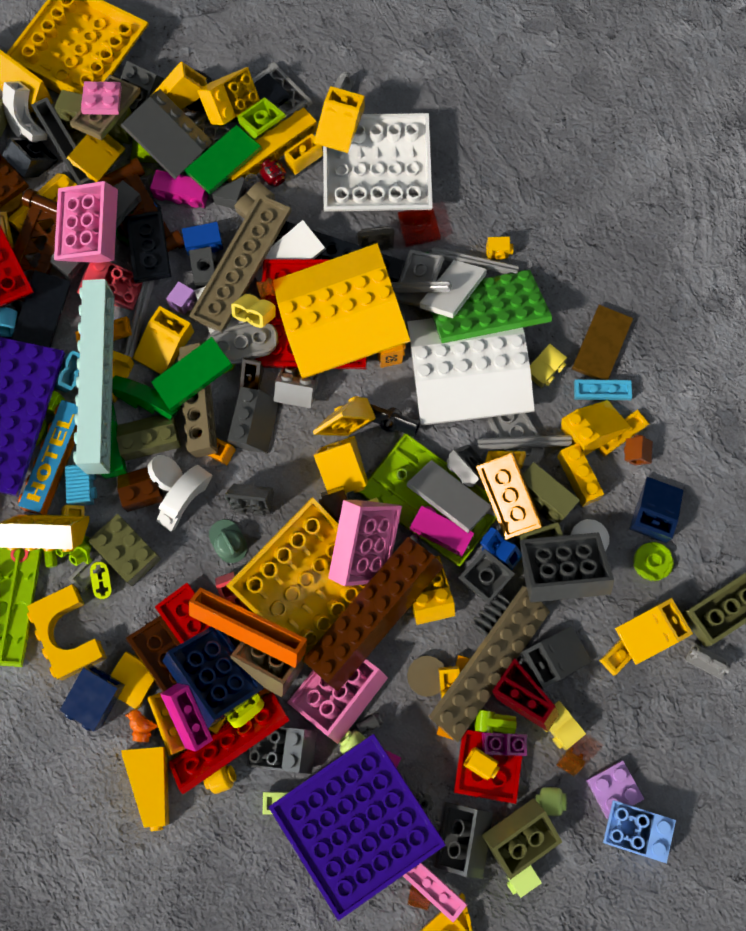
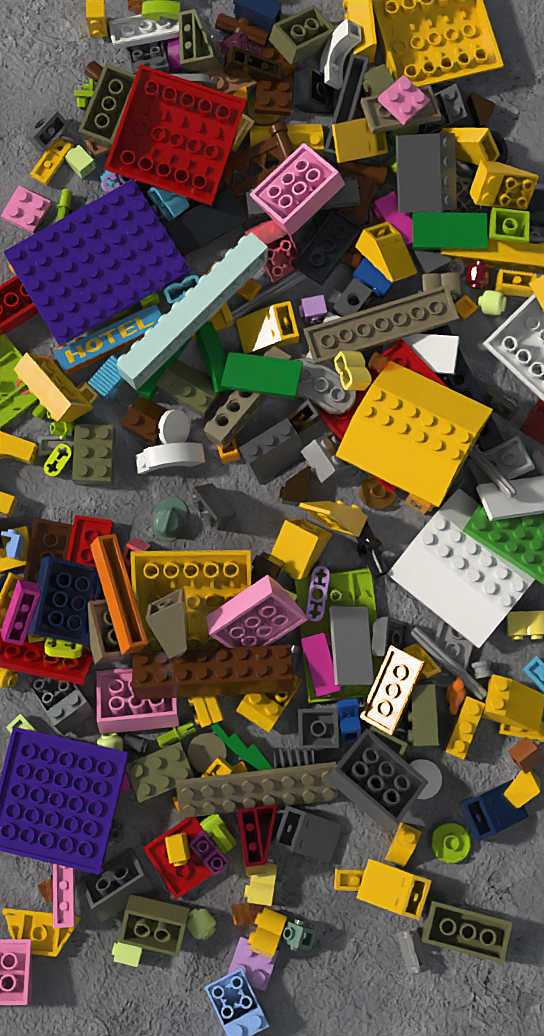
camera: 45 degrees right, 5 degrees up
(132, 674) = (15, 546): none -> light blue bracket
(159, 64) = (480, 109): none -> dark brown slope
(193, 211) = (386, 251): none -> yellow slope
(287, 199) = (465, 307): none -> light orange plate
(297, 429) = (296, 488): none -> dark brown slope
(301, 181) = (492, 302): none -> yellowish green head
(306, 607) = (170, 623): none -> dark tan slope
(355, 380) = (375, 495): none -> pearl gold tile
(383, 471) = (325, 580): none -> lavender beam
(392, 686) = (176, 734): none -> lime axle
(395, 645) = (207, 710): none -> yellow brick
(409, 724) = (159, 771): none -> olive brick
(459, 644) = (251, 754): none -> green slope
(550, 424) = (482, 669): none -> light grey wheel
(551, 458) = (455, 695): none -> orange animal
(603, 755) = (268, 932): none -> yellow brick
(625, 734) = (294, 933): none -> sand green brick
(626, 595) = (403, 845): none -> yellow slope
(661, 474) = (523, 788): none -> yellow slope

